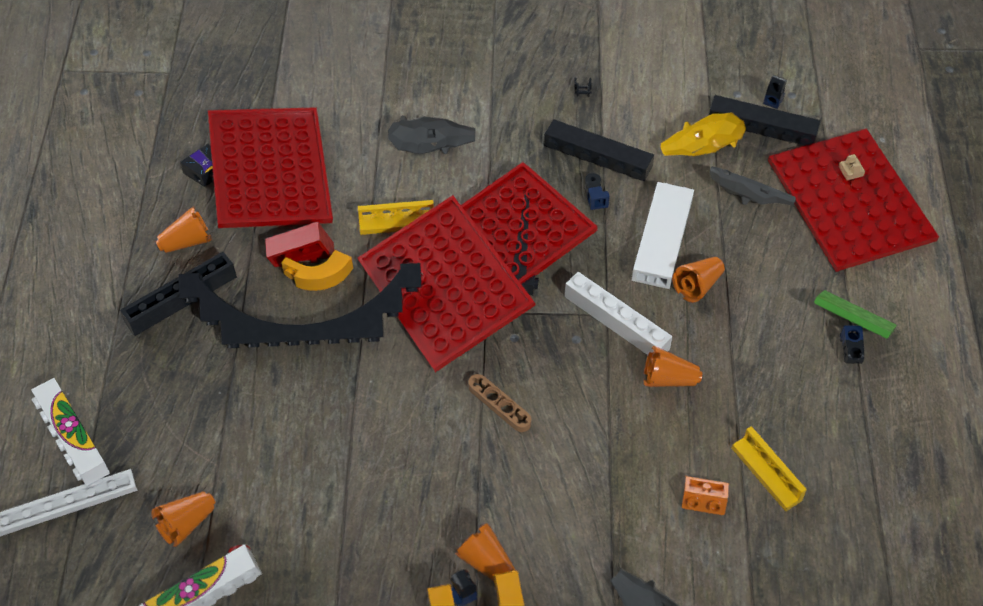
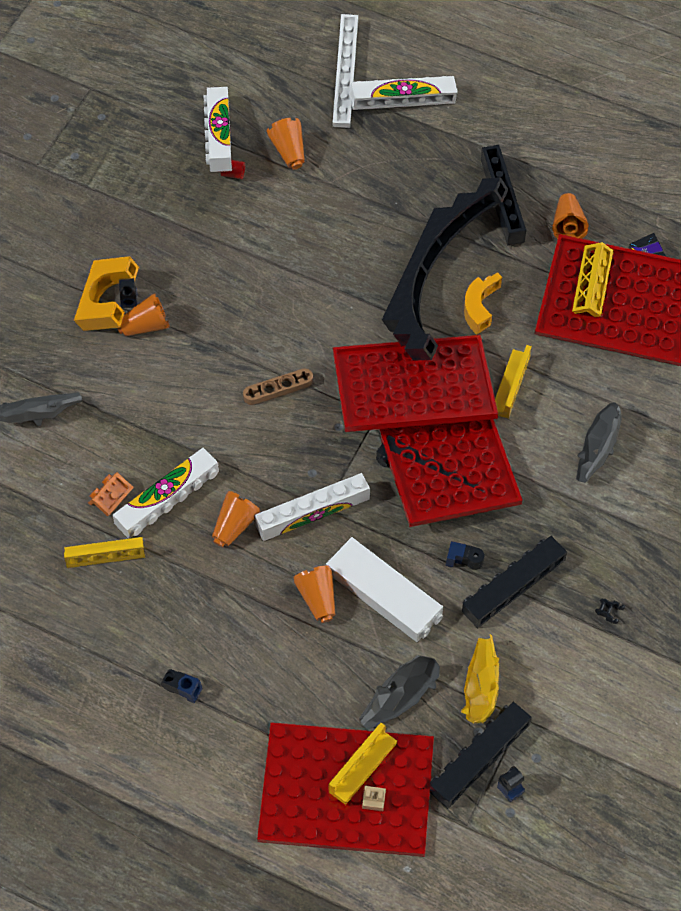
camera: 115 degrees right, 5 degrees up
(261, 176) = (596, 277): none -> yellow fence
(299, 244) = (512, 296): red wedge -> none
(675, 443) = (166, 493): none -> white brick
(832, 185) = (362, 764): none -> yellow fence
(855, 314) = (208, 701): bright green tile -> none

